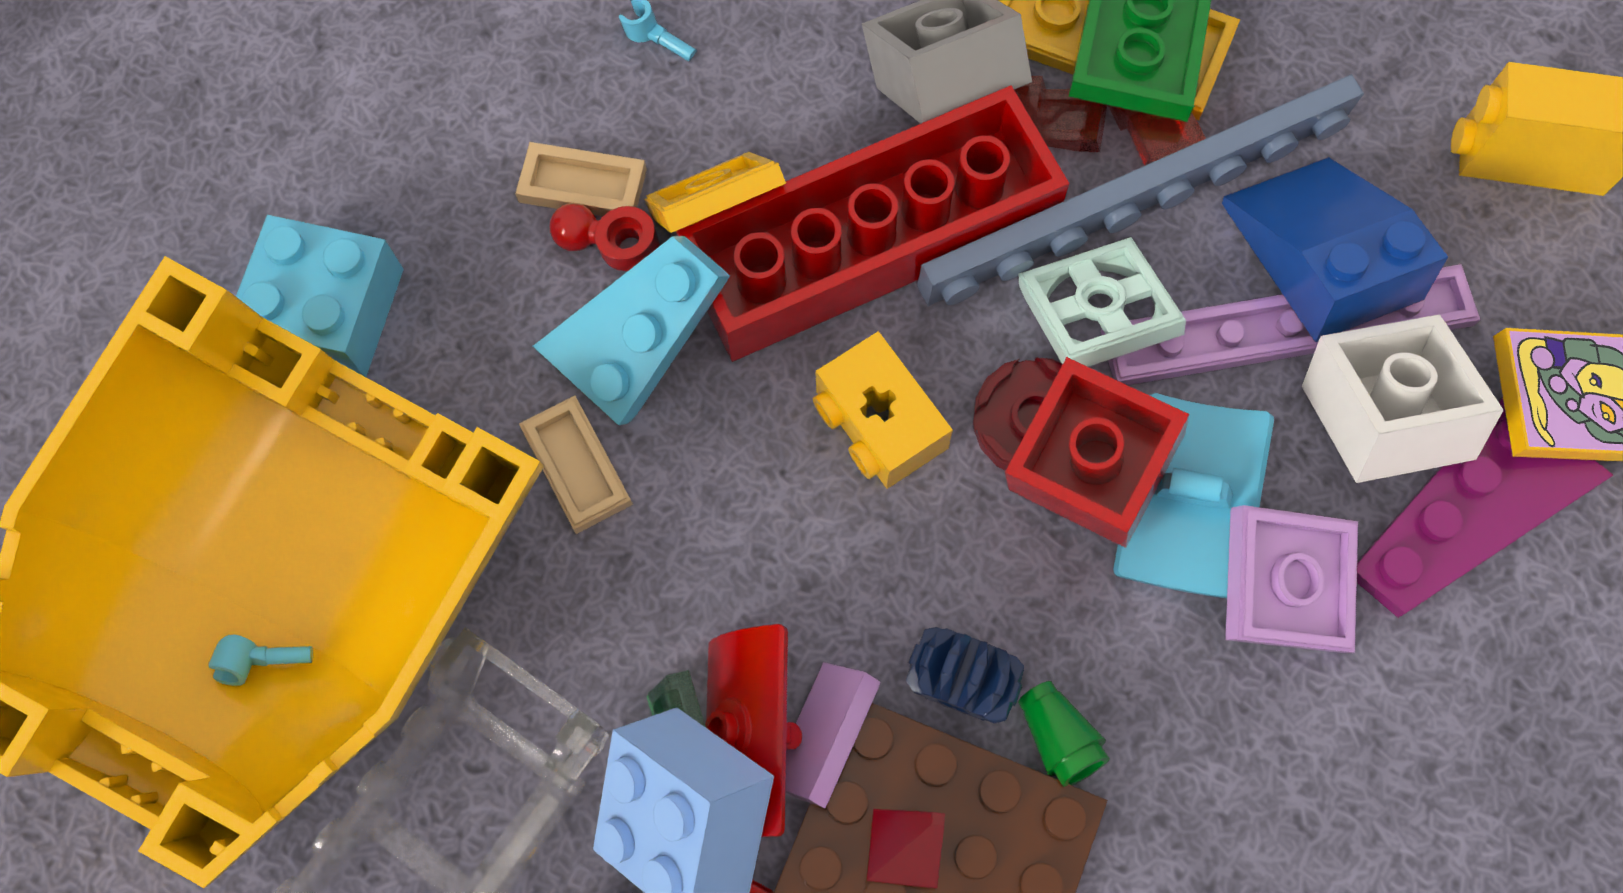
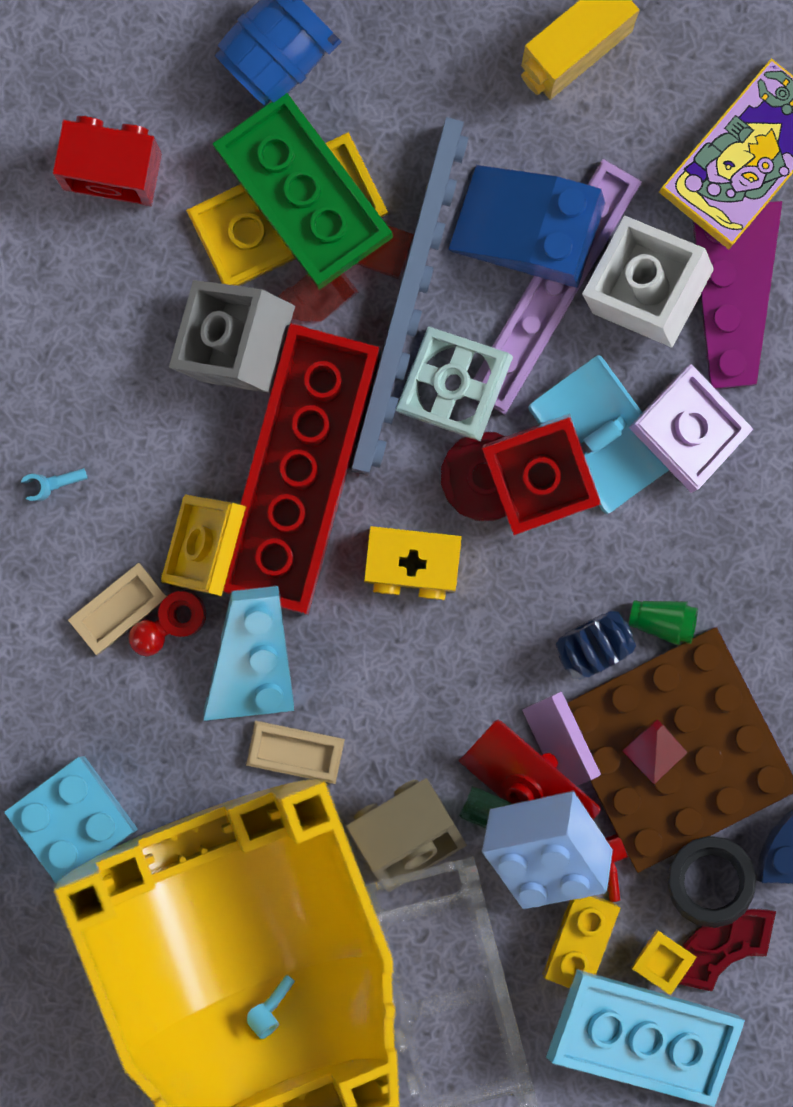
camera: 50 degrees left, 15 degrees up
(572, 634) = (406, 832): none -> dark tan brick

